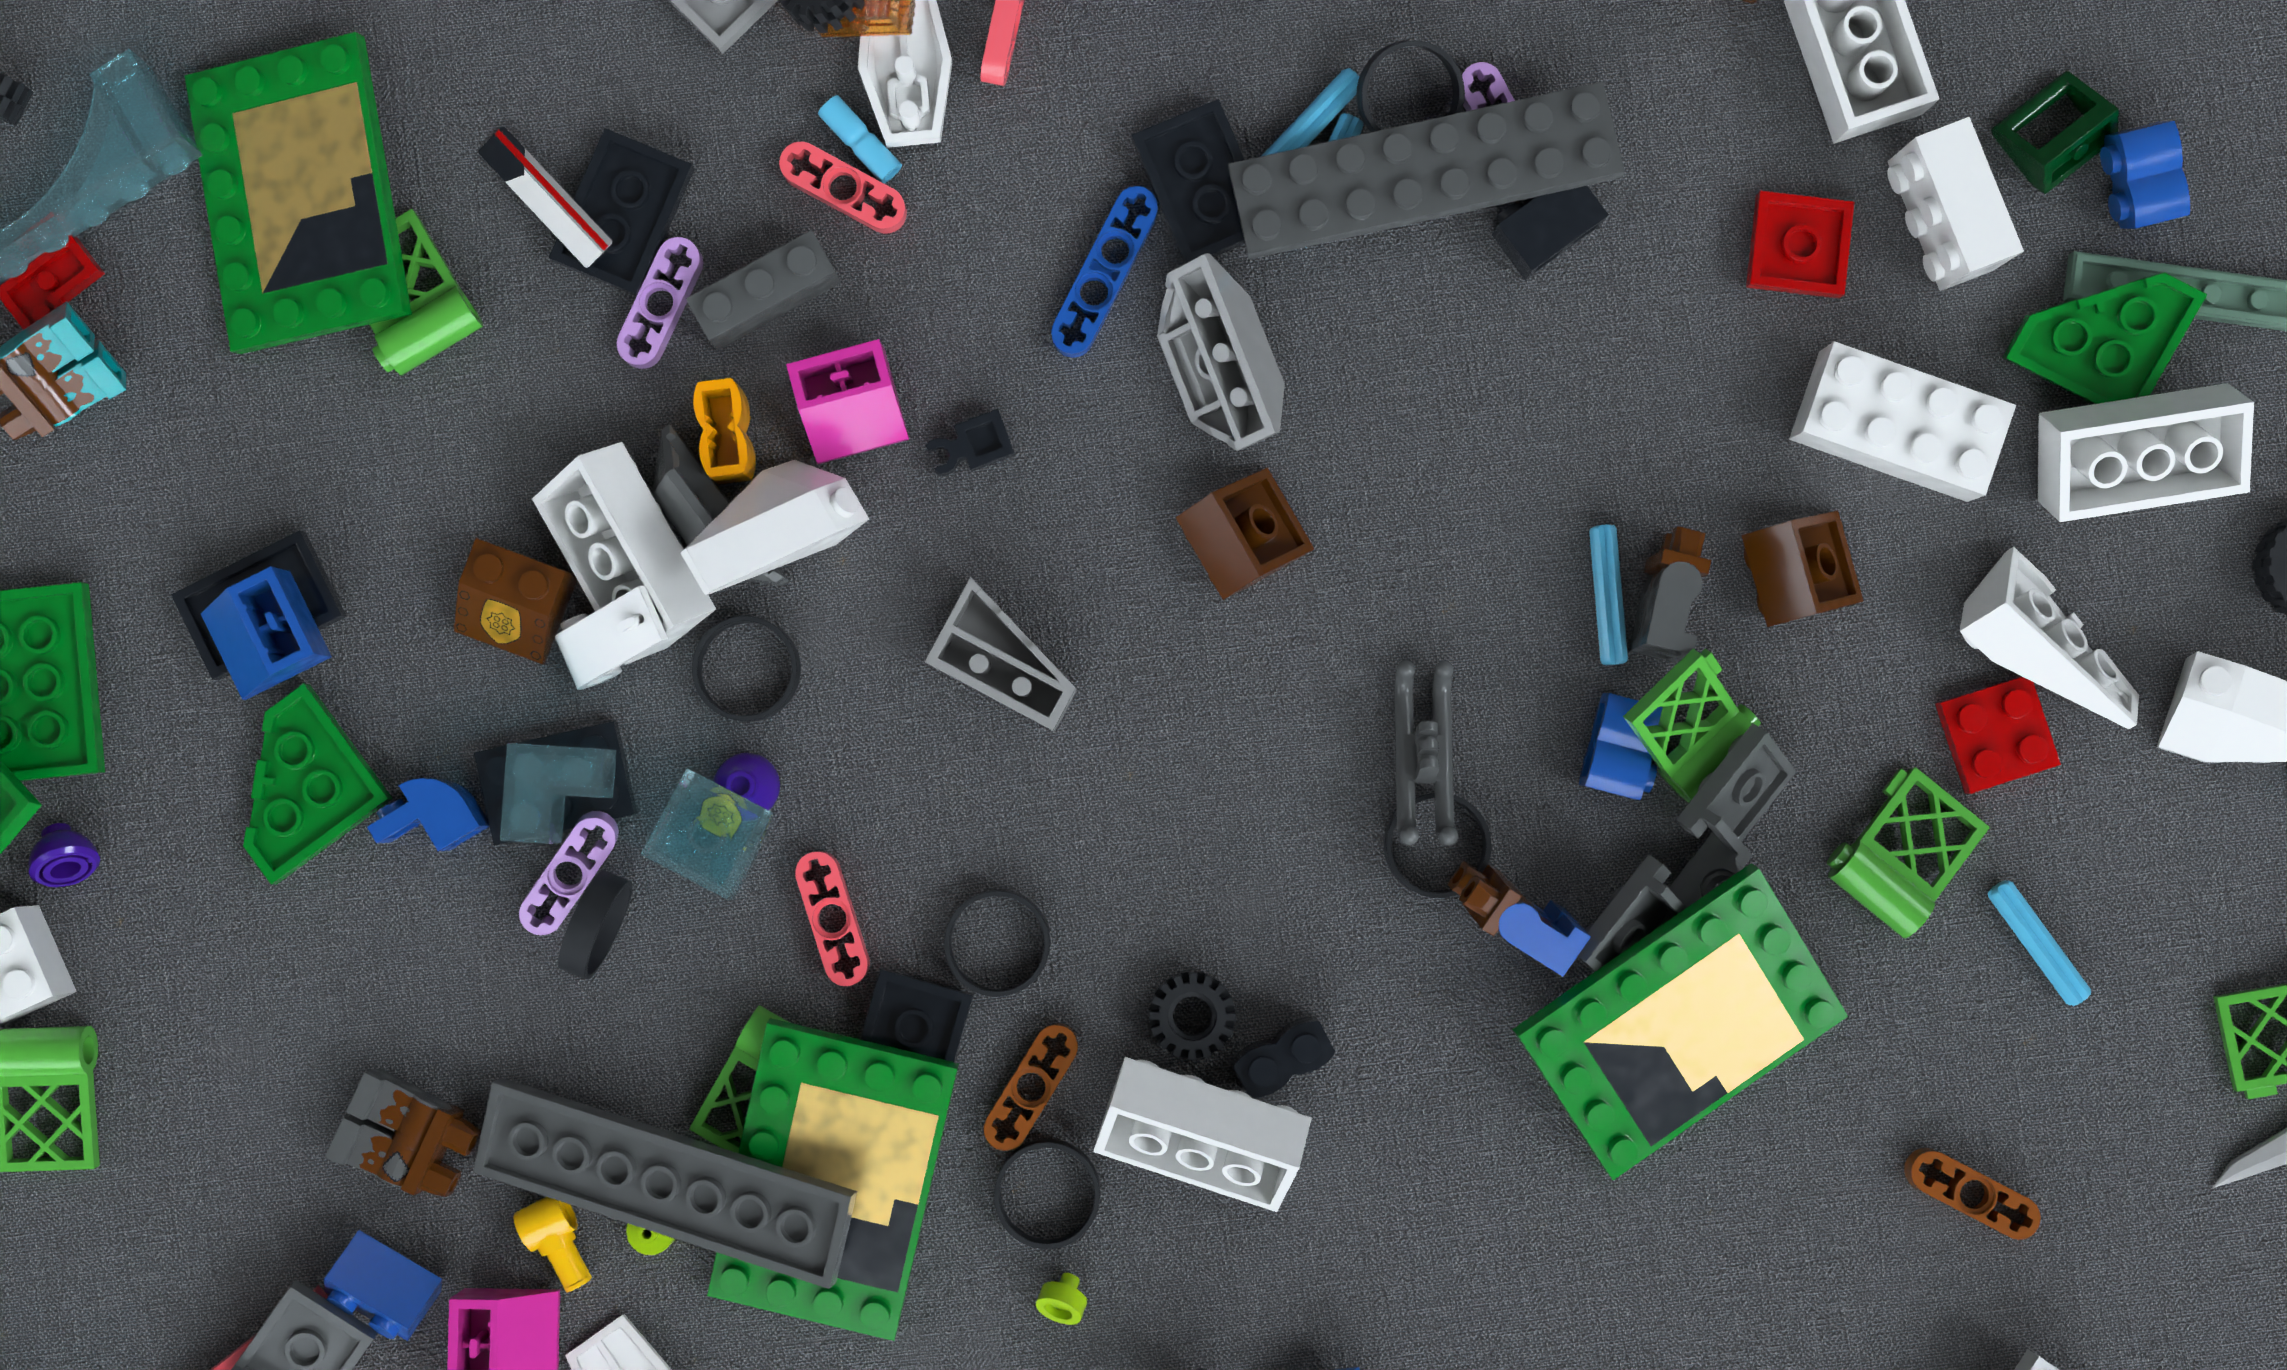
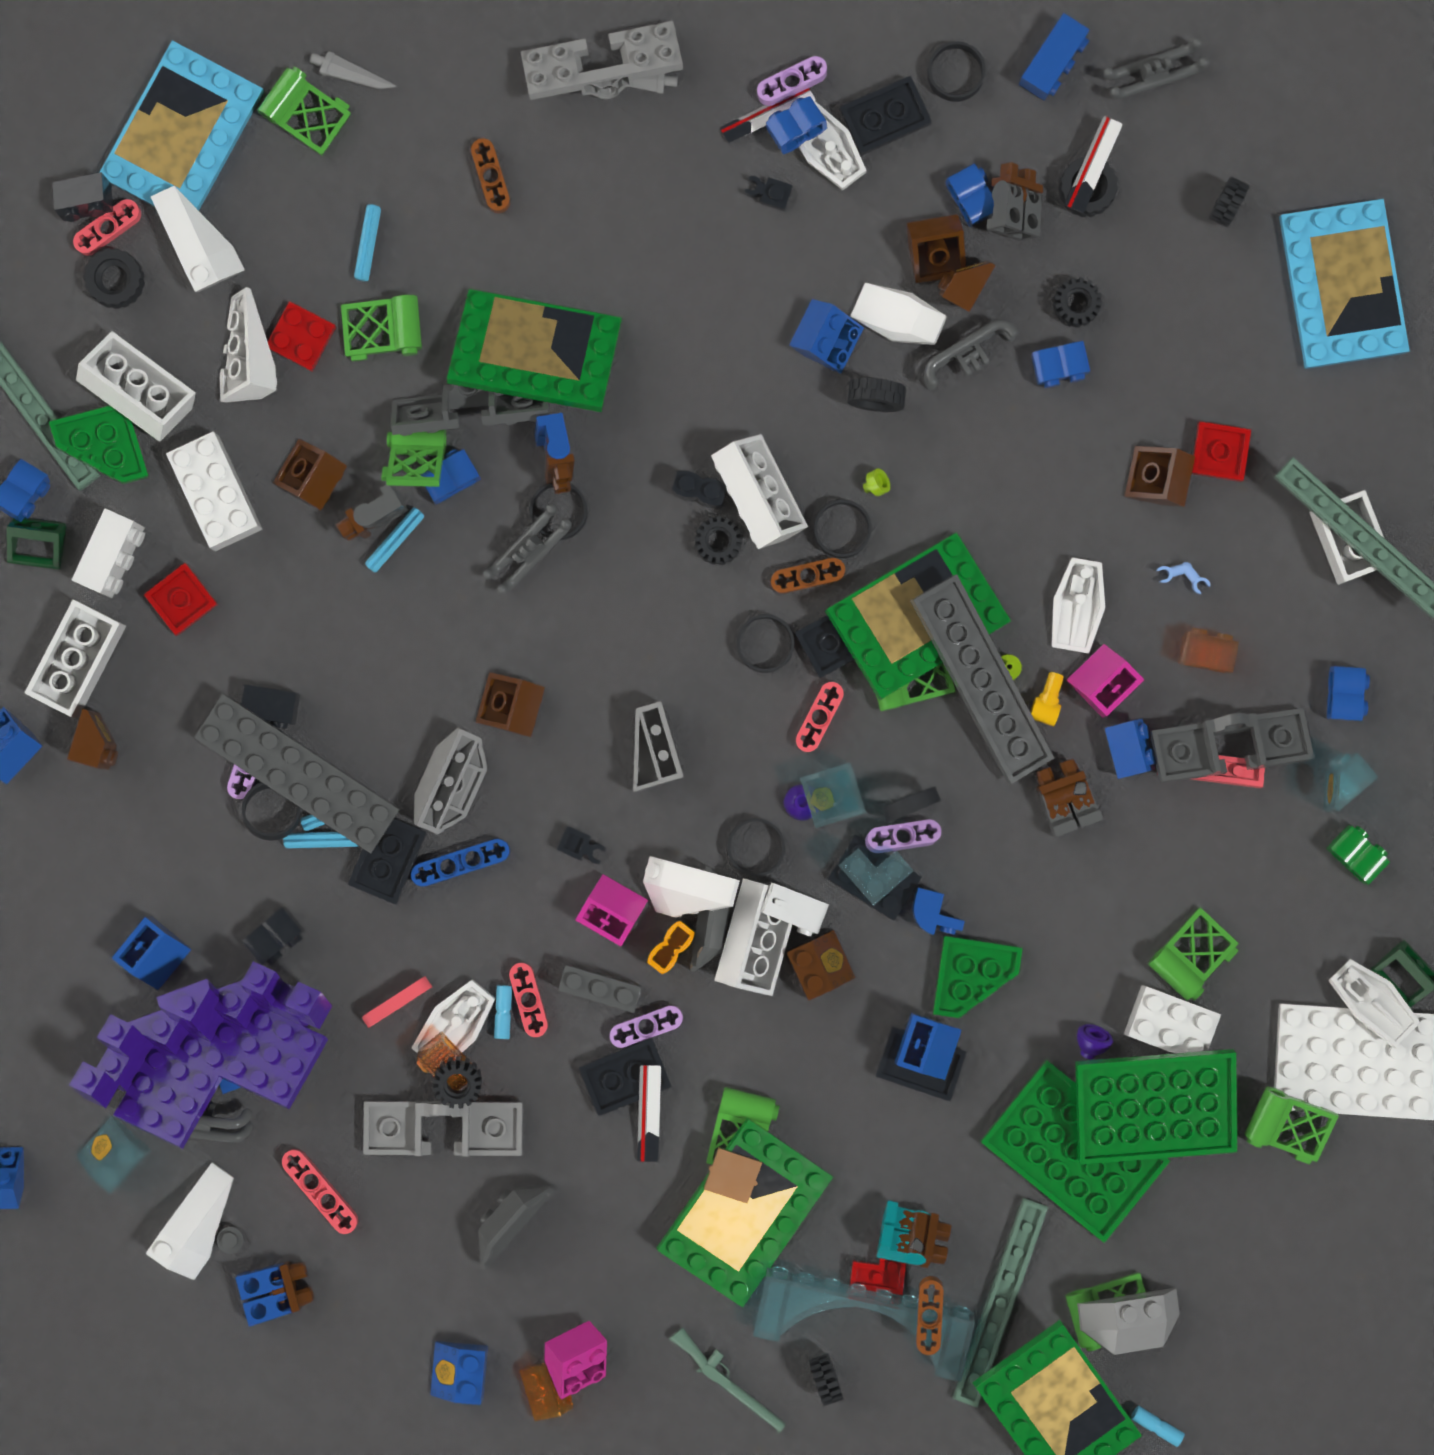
camera: 130 degrees left, 0 degrees up
(353, 220) = (732, 1175): none -> medium nougat piece

